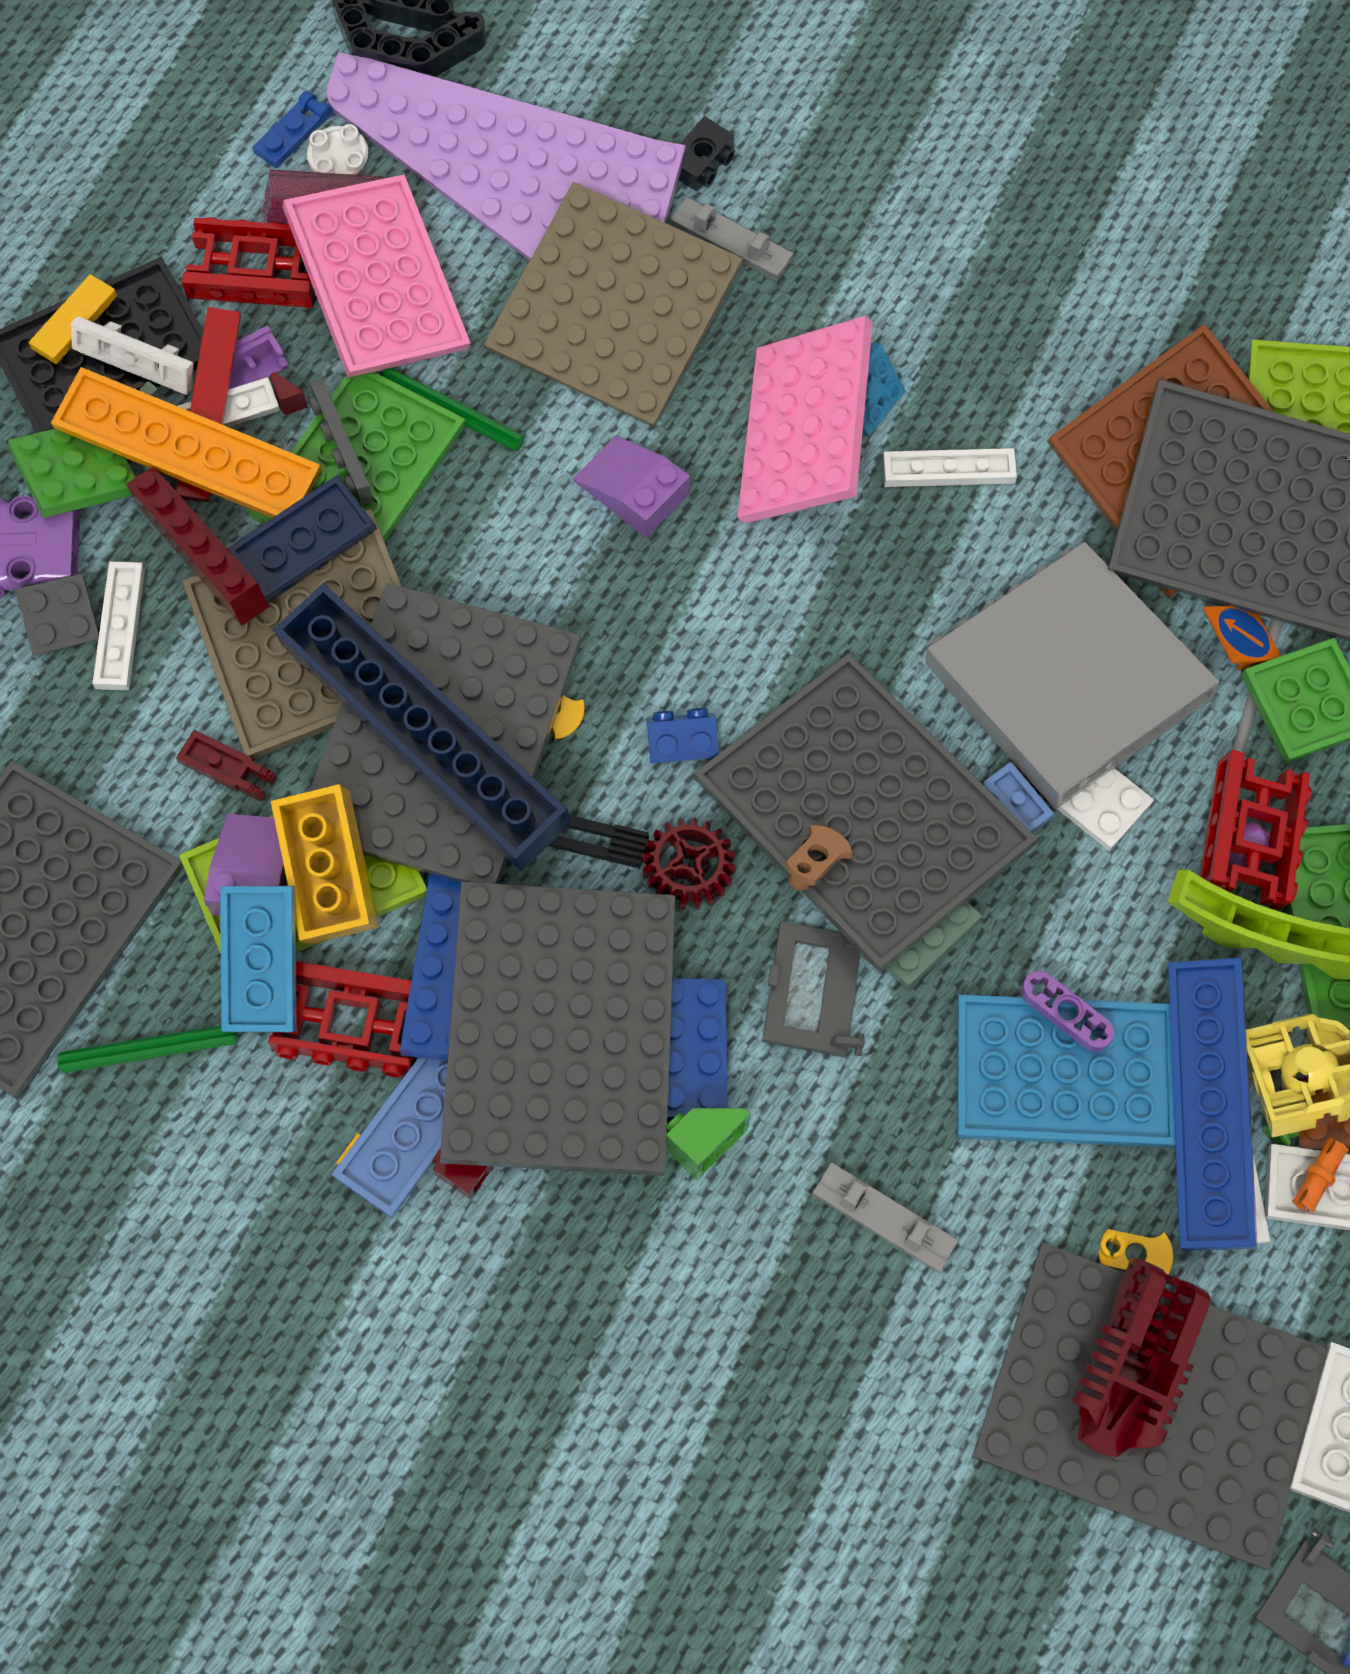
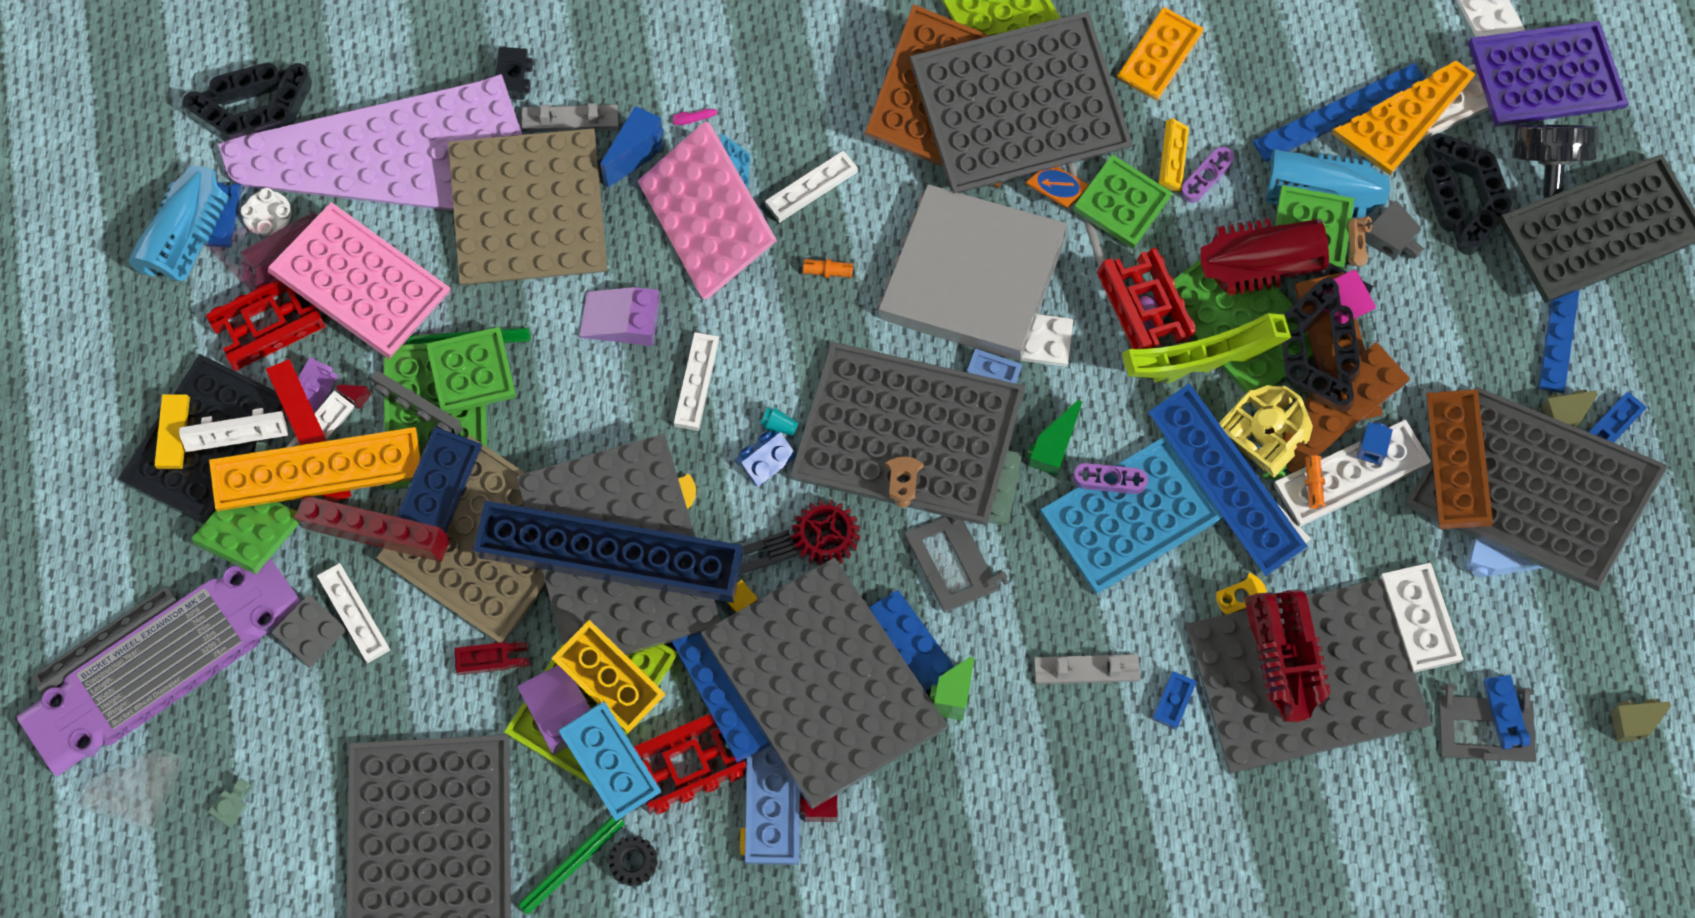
camera: 35 degrees left, 0 degrees up
(200, 1073) = (621, 849): none -> black tyre
(238, 106) = (180, 224): none -> dark azure connector
(424, 442) = (471, 370): none -> bright green plate
(543, 872) = (743, 597): none -> yellow tile
(665, 605) = (696, 381): none -> white plate
(724, 704) = (778, 421): none -> teal cone
(774, 304) = (633, 146): none -> blue slope
(857, 310) = (687, 118): none -> dark pink piece
(903, 569) = (827, 268): none -> orange pin
(964, 1324) = (1174, 700): none -> blue plate
(1031, 926) = (1053, 442): none -> green slope

